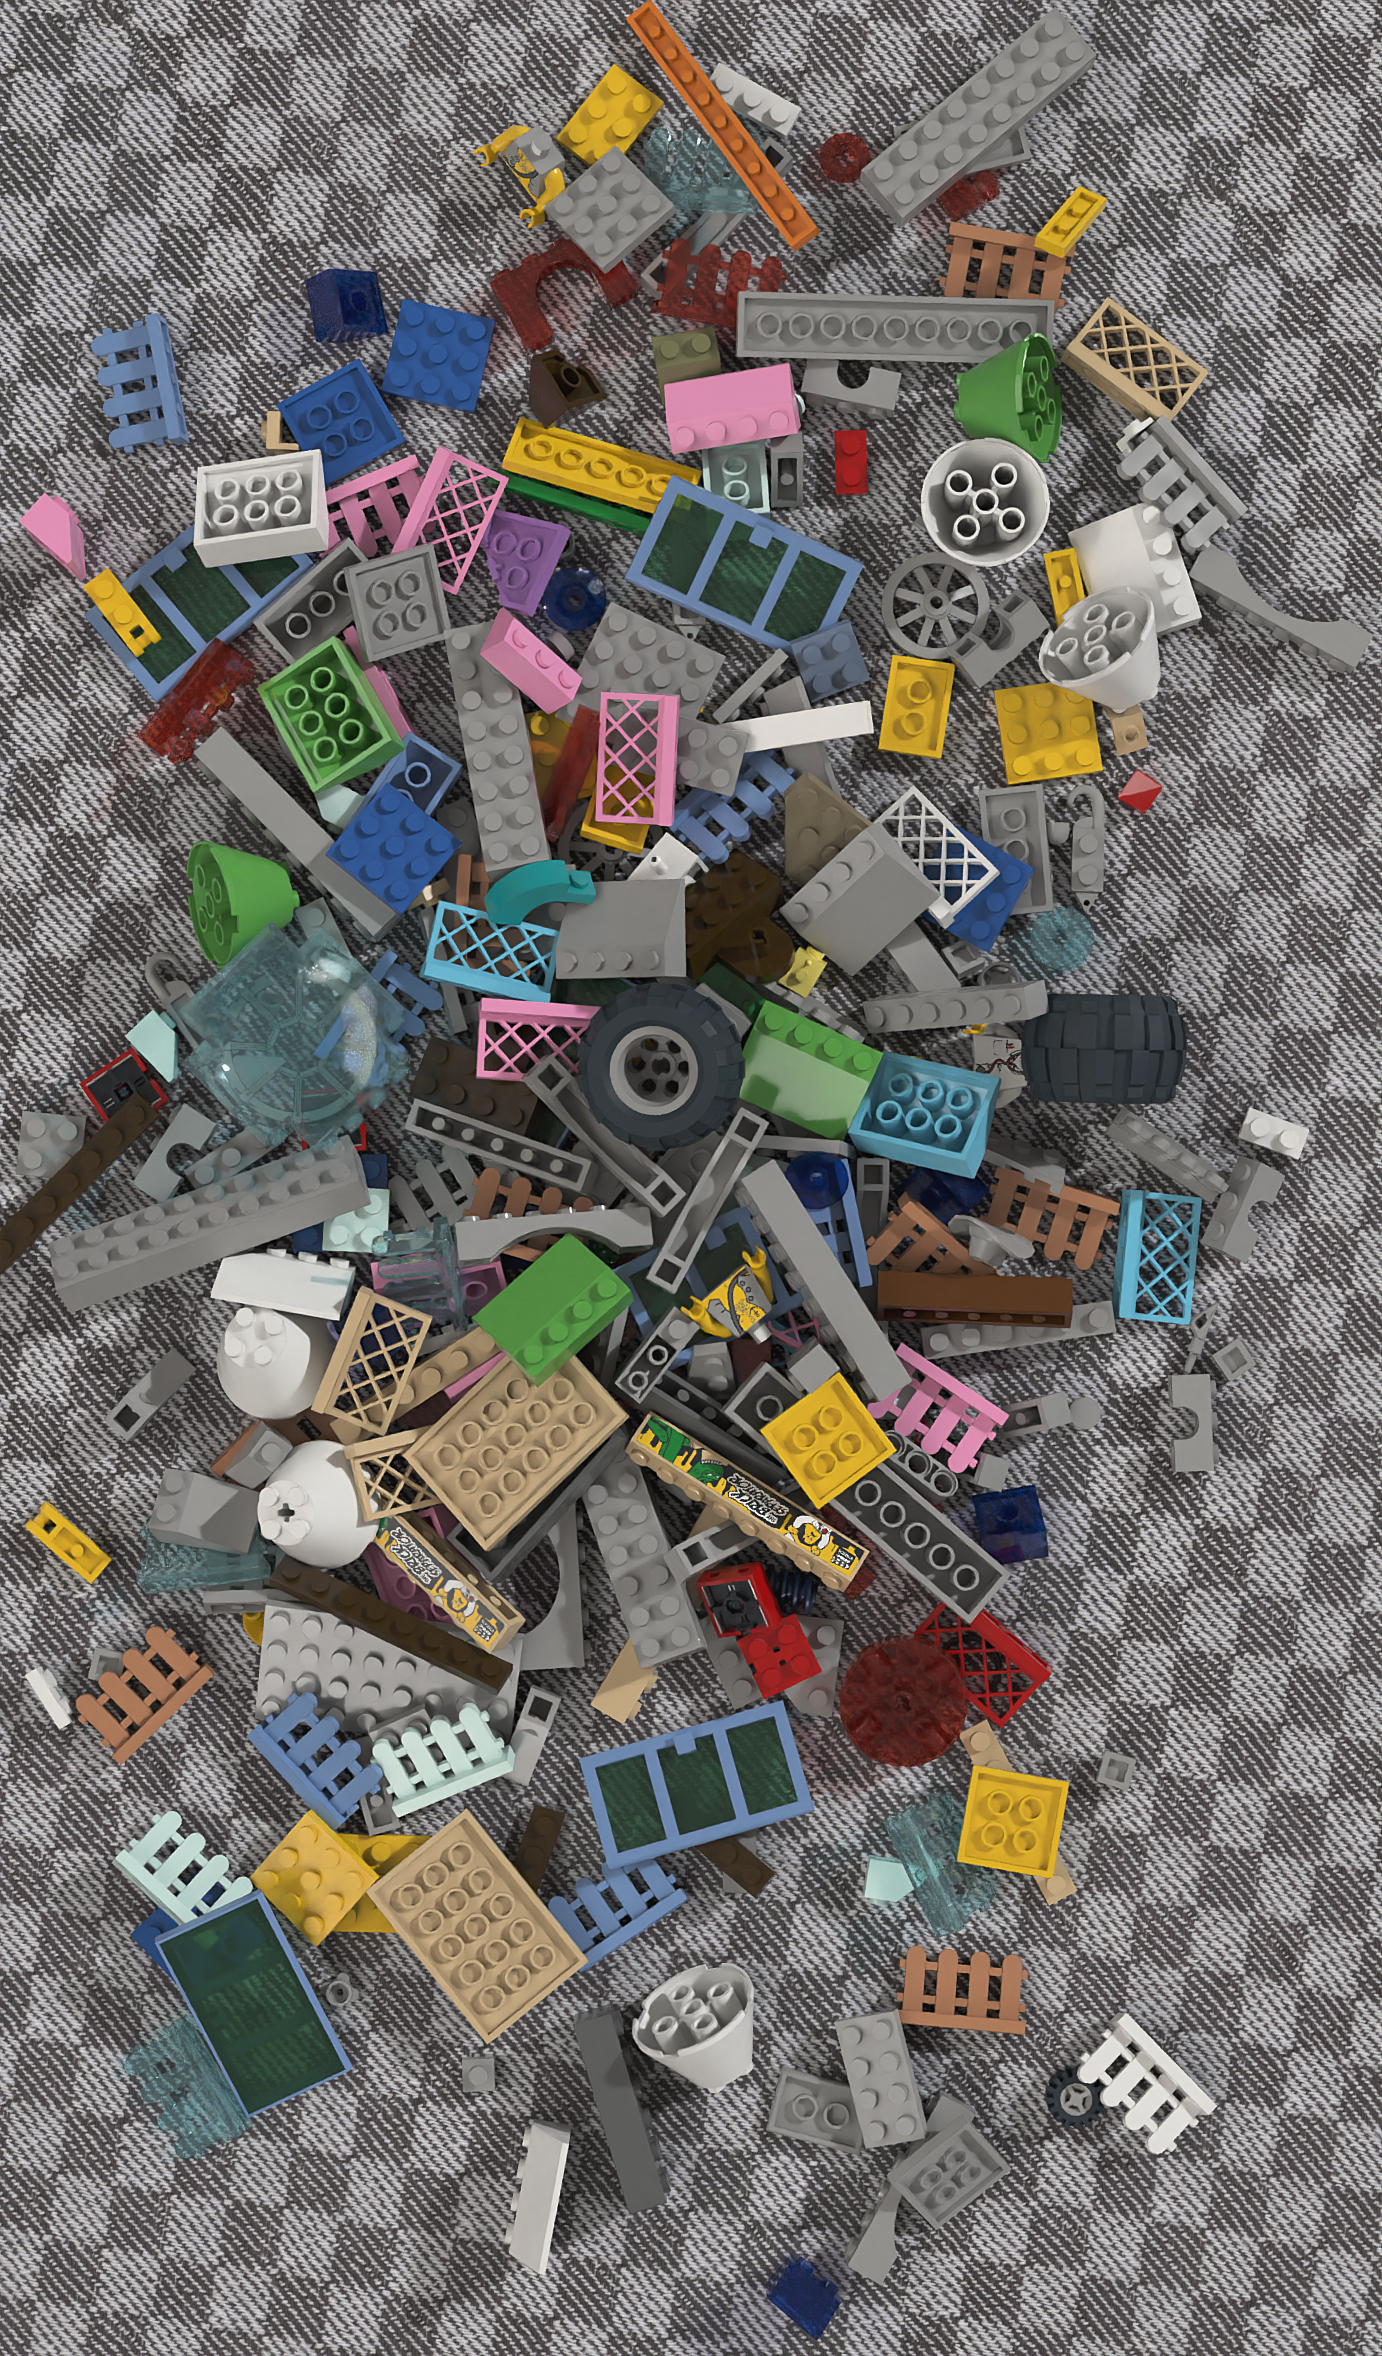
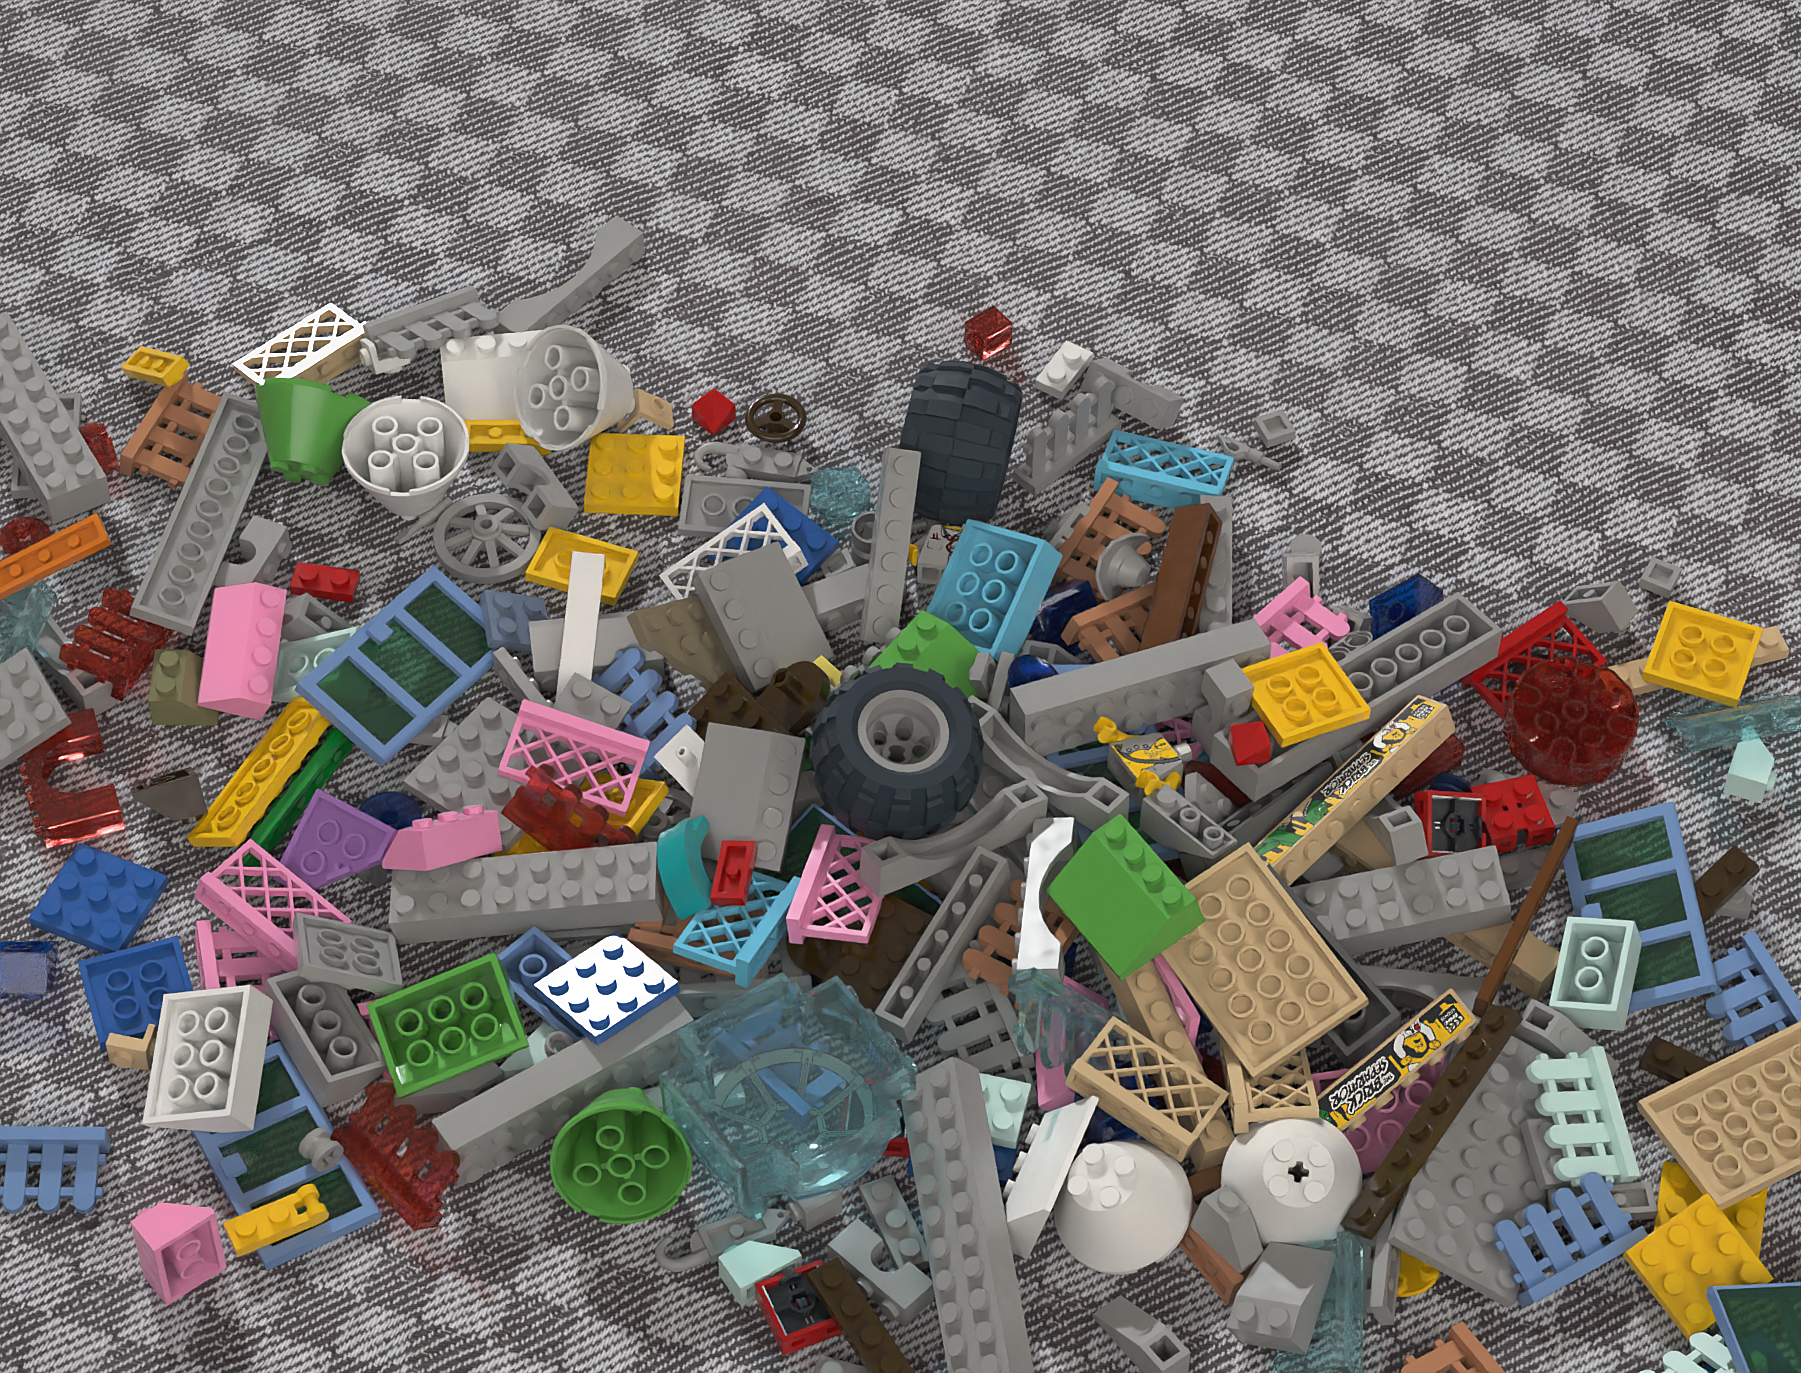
camera: 80 degrees left, 35 degrees down
(196, 633) = (321, 1149): none -> light grey wheel
(333, 825) = (557, 1036): none -> light grey hinge
(533, 938) = (733, 873): none -> red plate
(603, 1755) = (1596, 972): none -> light aqua brick
(648, 1683) = (1525, 917): none -> reddish brown tile
(751, 1398) = (1249, 743): none -> red slope
(819, 1126) = (982, 674): none -> light grey plate
(1063, 1712) = (1601, 606): none -> light grey slope
(1133, 867) = (775, 425): none -> dark brown piece
(1197, 1449) = (1351, 463): light grey arch -> none
(1300, 1047) = (988, 333): none -> clear red brick

